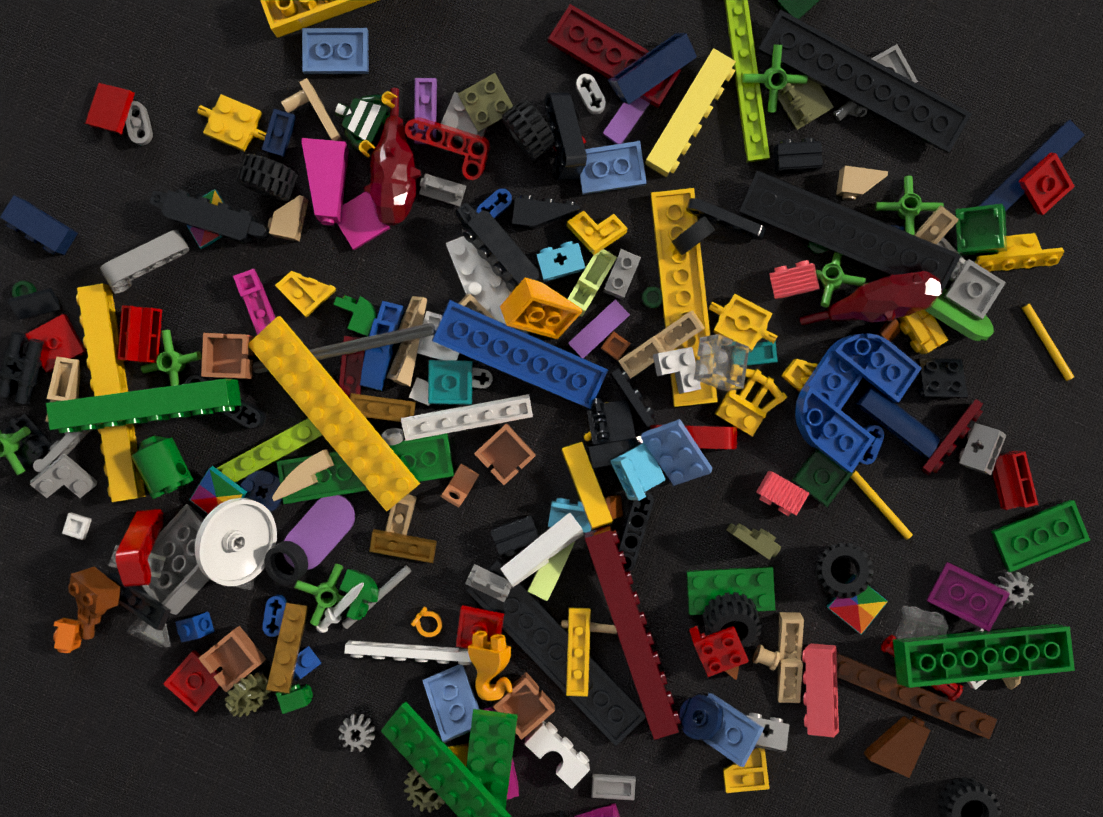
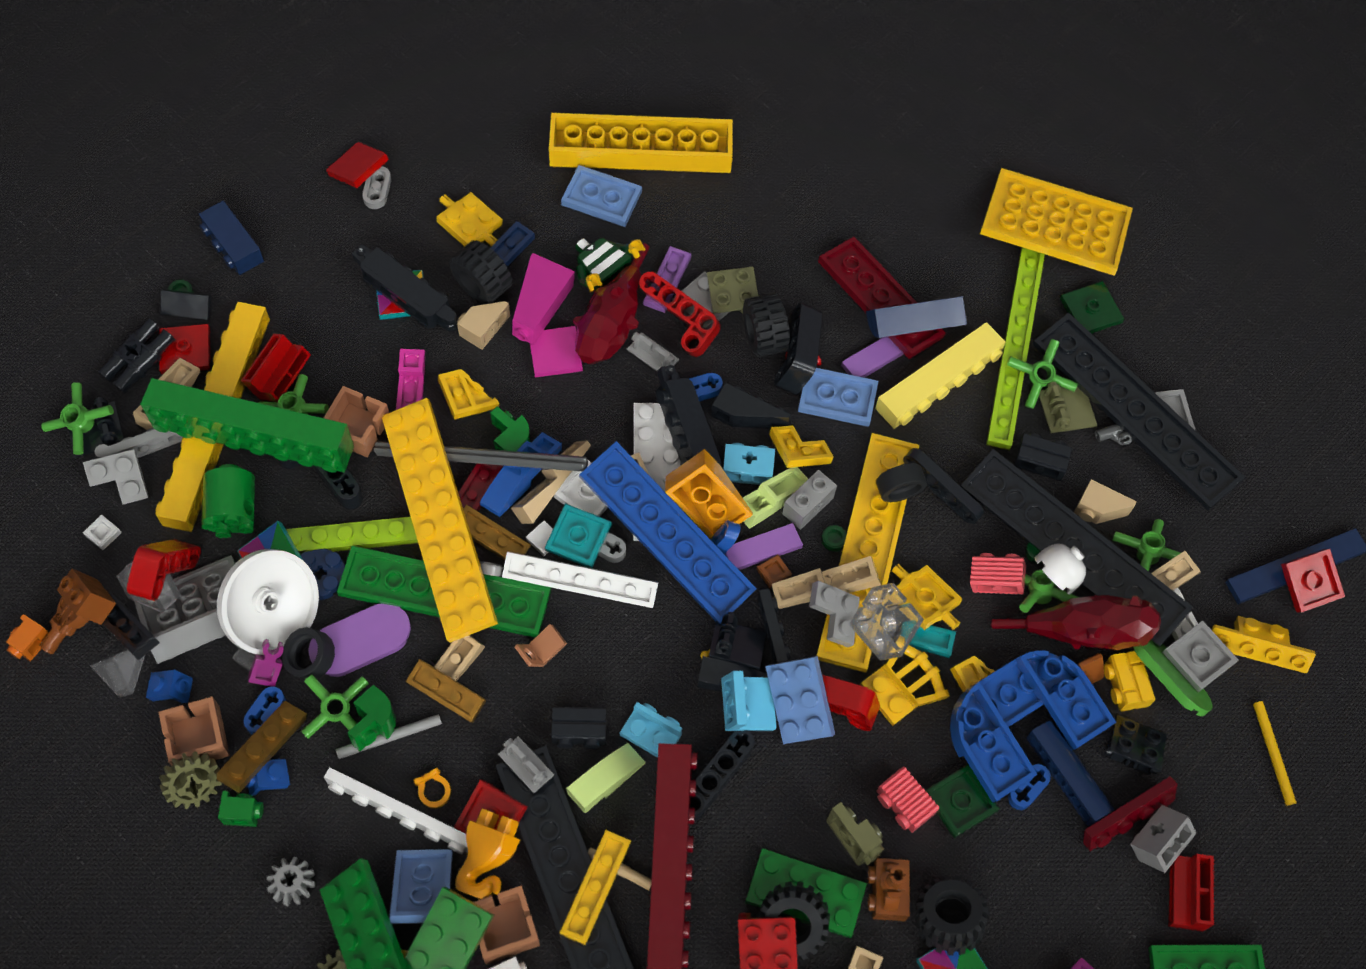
camera: 15 degrees right, 25 degrees down
(143, 259) = (315, 301): light grey beam -> none
(192, 682) = (136, 746): red plate -> none
(260, 585) = (266, 668): none -> magenta plate
(304, 474) = (374, 566): tan slope -> none
(309, 94) = (556, 222): tan piece -> none
(332, 614) = (330, 732): white sword -> none
(505, 452) = (606, 631): nougat piece -> none
(542, 549) = (594, 750): white slope -> none
(567, 338) = (726, 536): none -> blue beam
(587, 485) = (683, 699): yellow tile -> none
(595, 92) = (848, 322): white beam -> none
(614, 506) = (704, 740): dark orange slope -> none
(792, 567) = (890, 889): none -> dark orange brick
(847, 260) = (1063, 566): none -> white cylinder
(887, 512) = (1022, 863): yellow bar -> none
(981, 230) = (1225, 597): green container -> none

